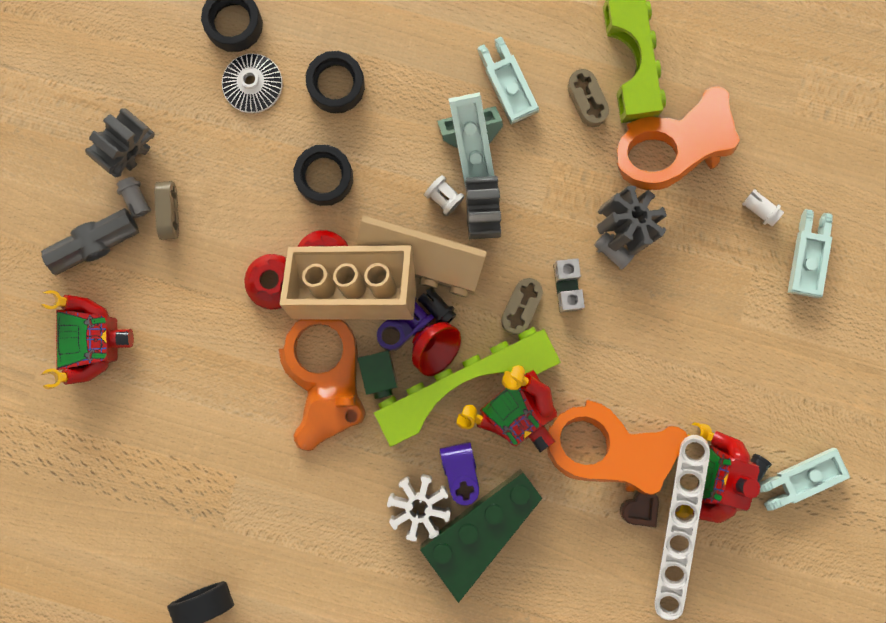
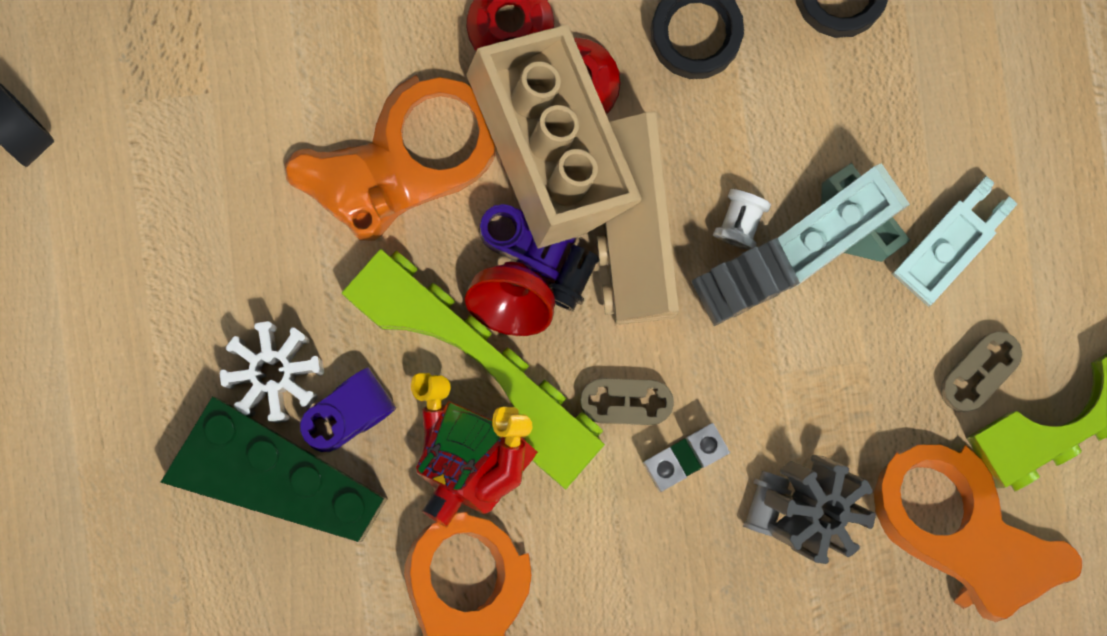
camera: 65 degrees right, 0 degrees up
(378, 374) = (439, 233): dark green brick -> none

